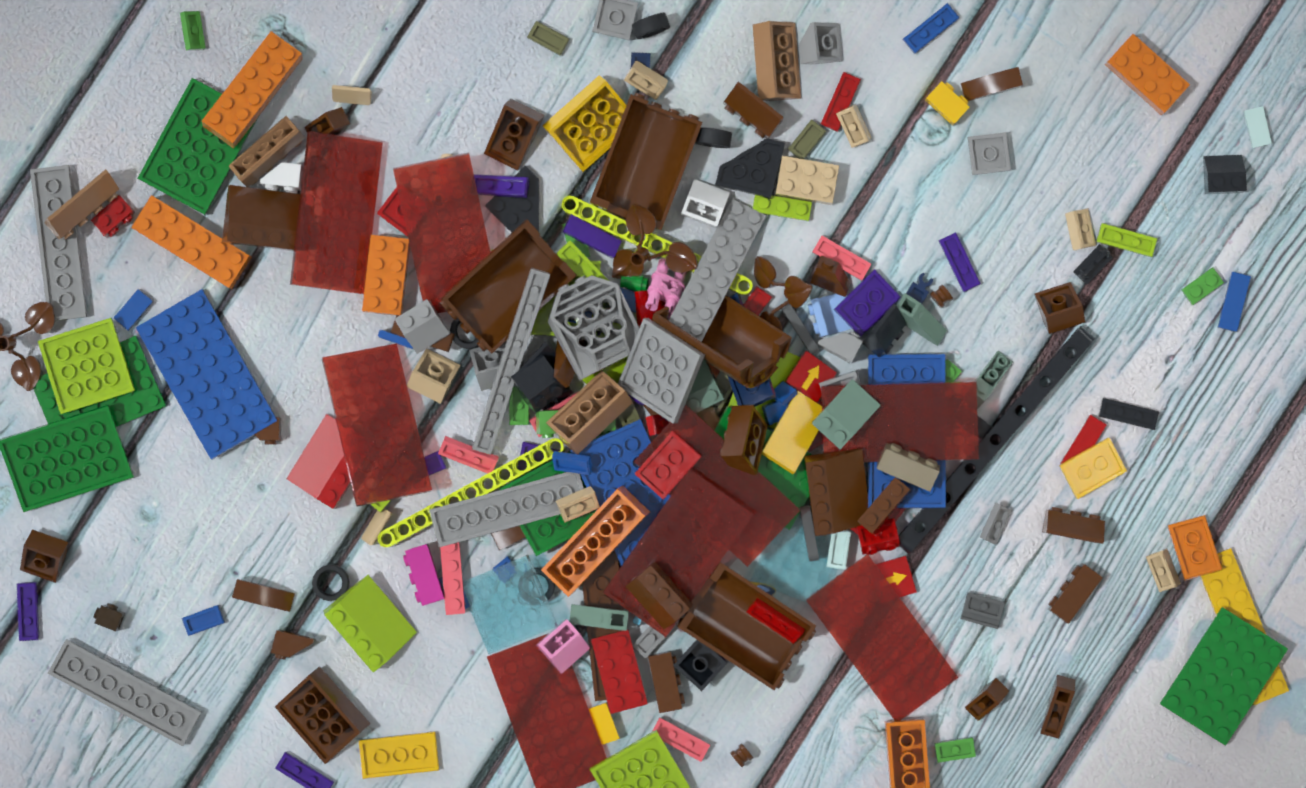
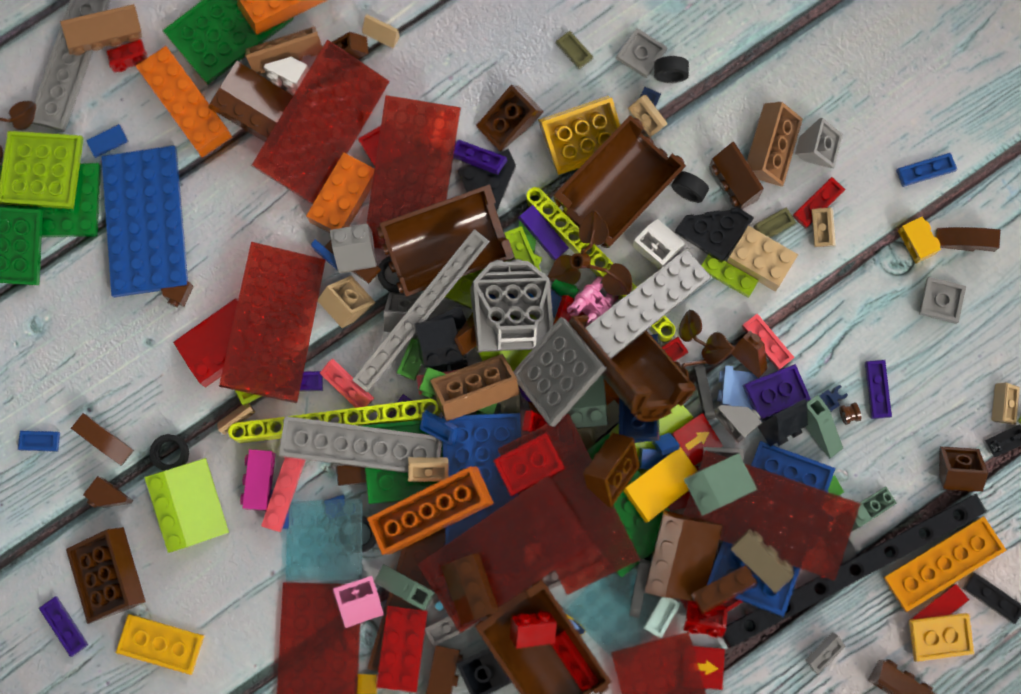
camera: 25 degrees right, 10 degrees down
(729, 608) = (533, 629): none -> red brick
(1074, 401) = (944, 564): none -> light orange plate

